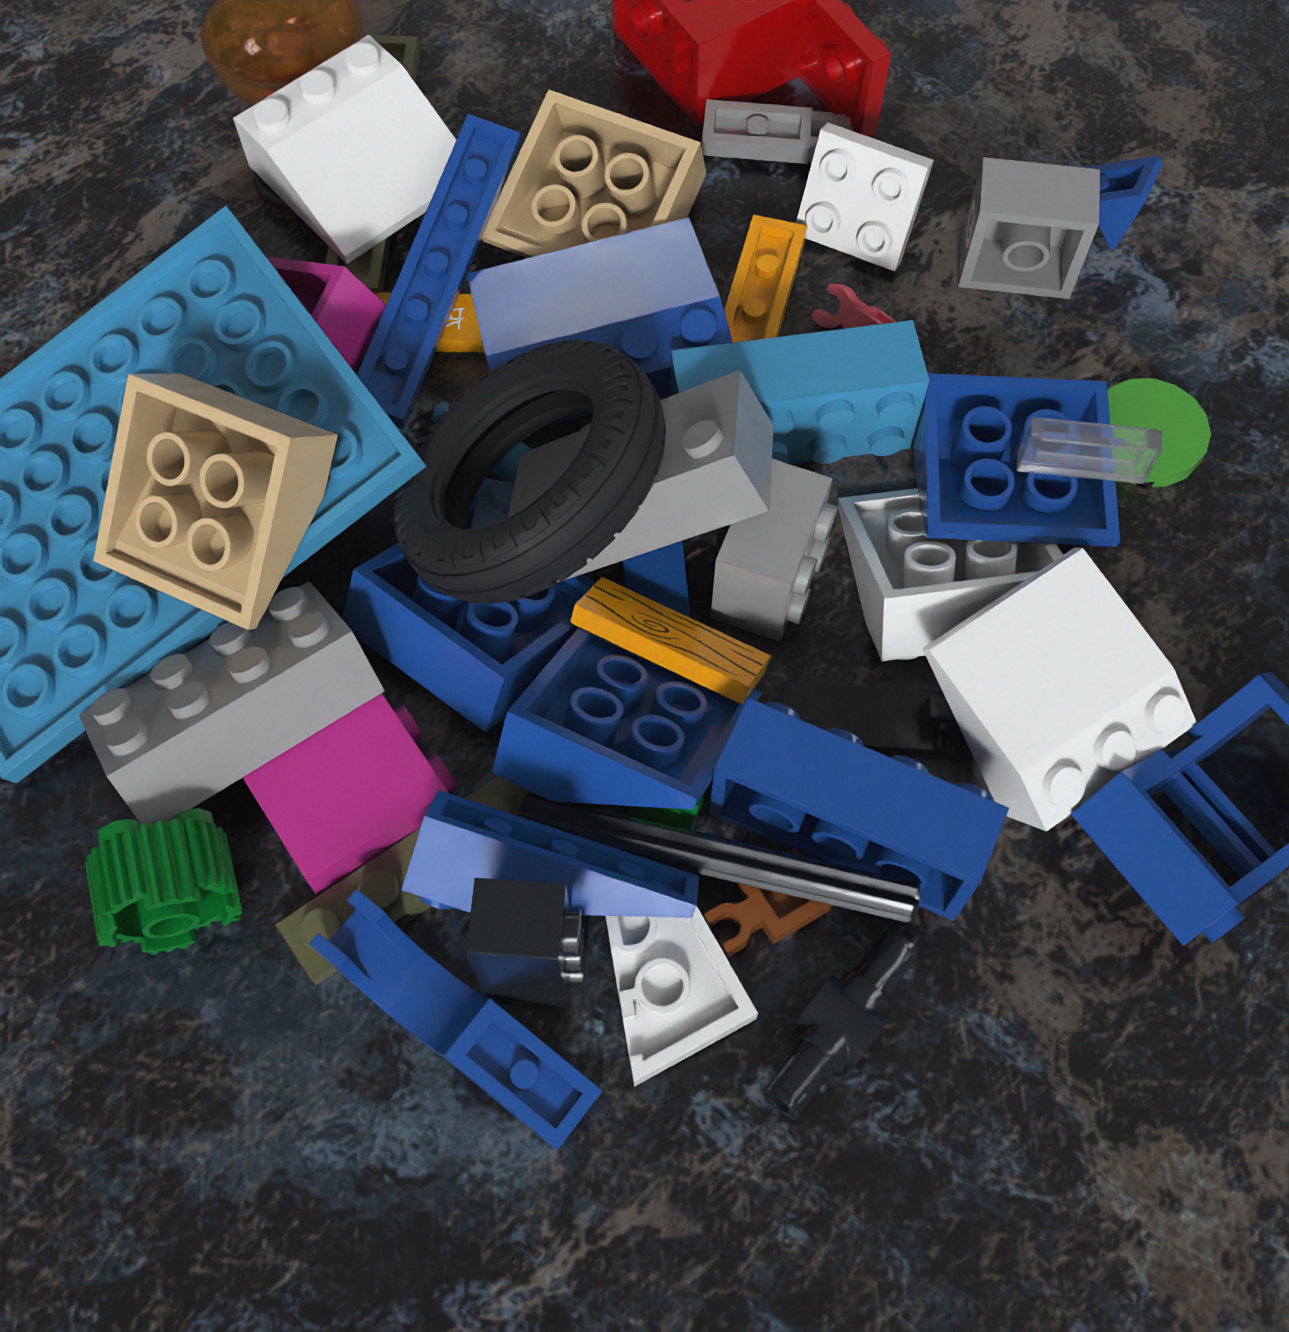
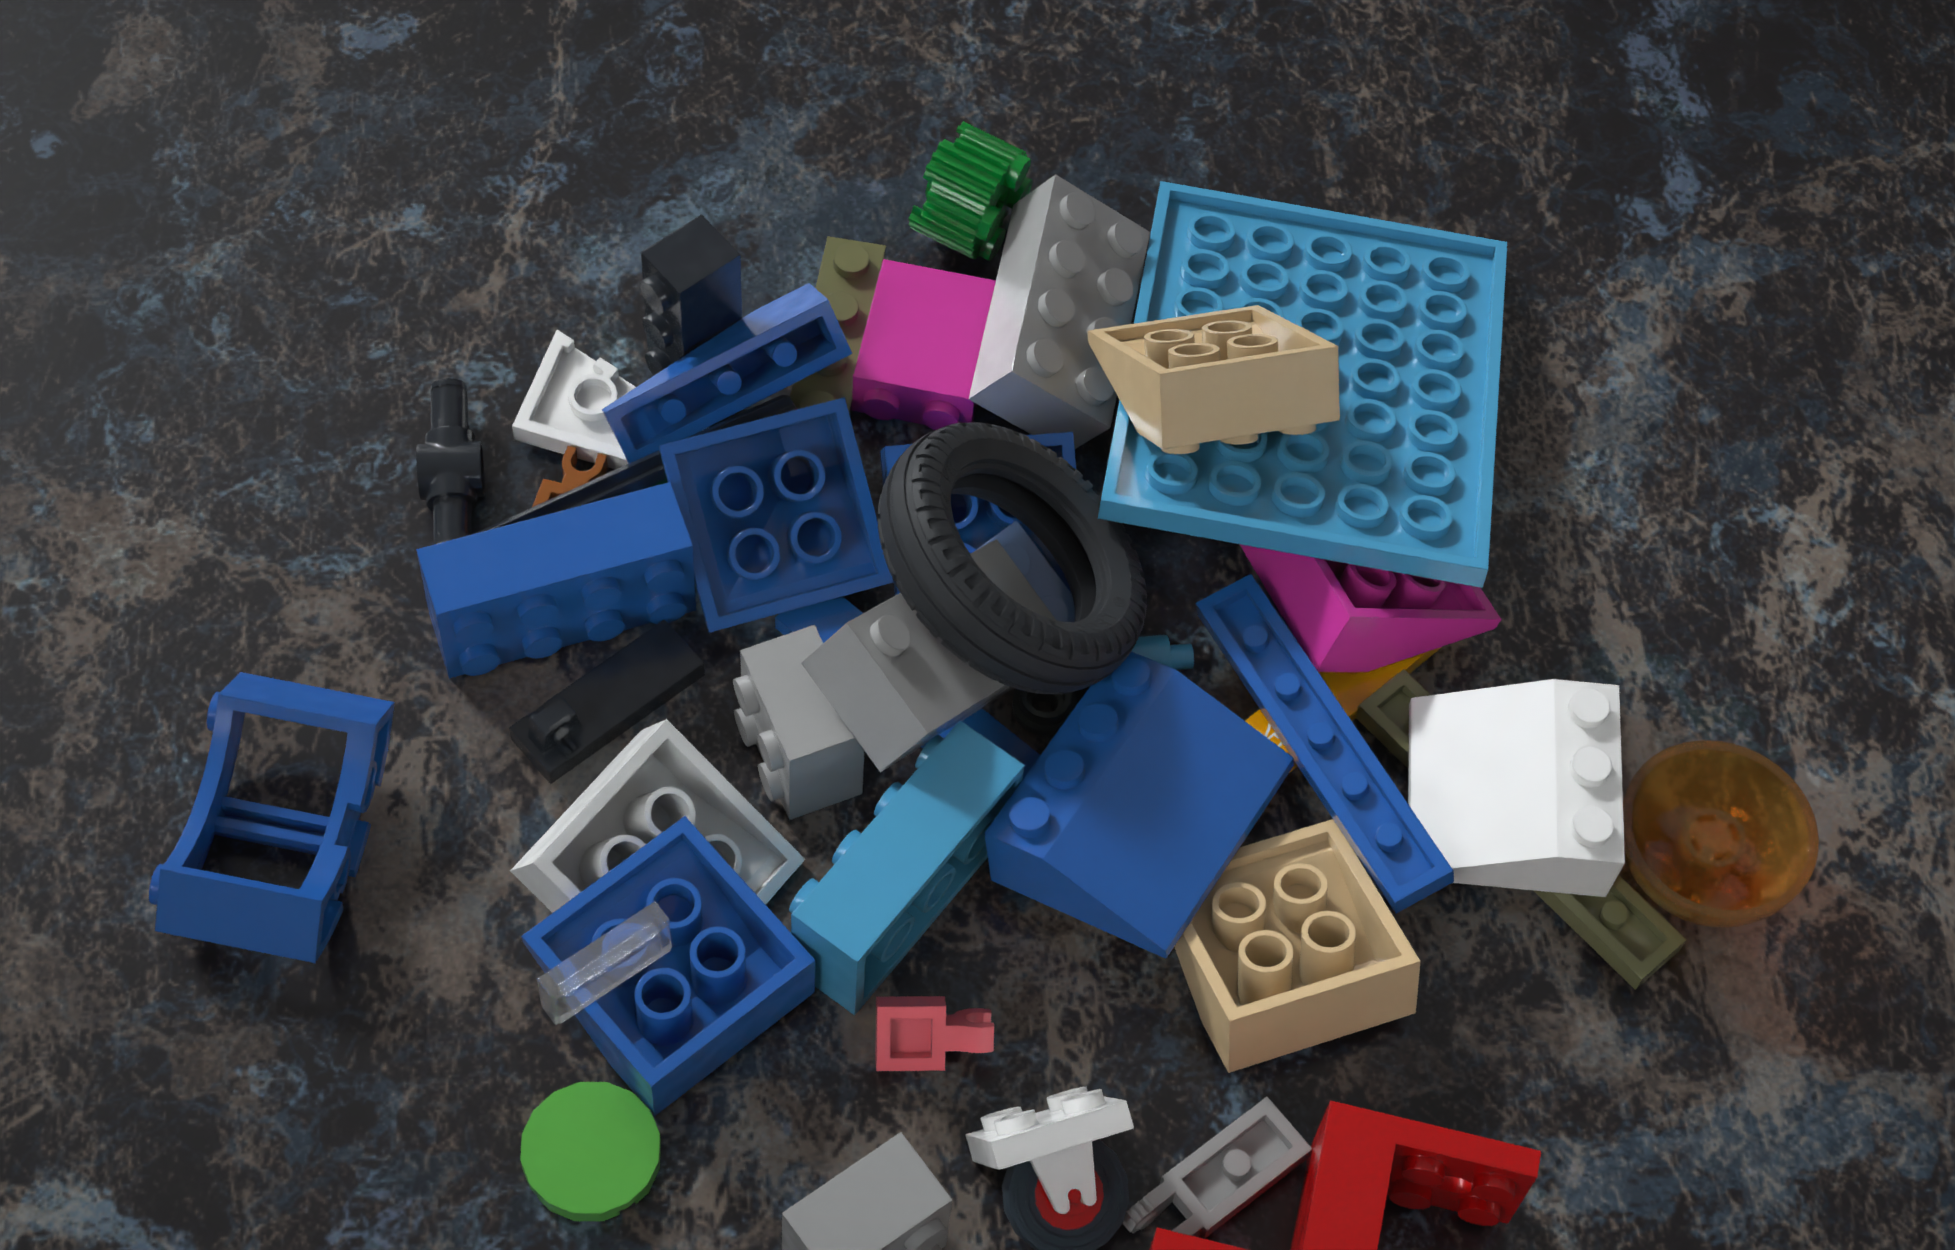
camera: 130 degrees right, 5 degrees down
(458, 1023) = (612, 293): blue piece -> none
(670, 639) = (790, 604): light orange tile -> none
(764, 278) = (1055, 991): light orange plate -> none
(1057, 690) = (472, 778): white slope -> none

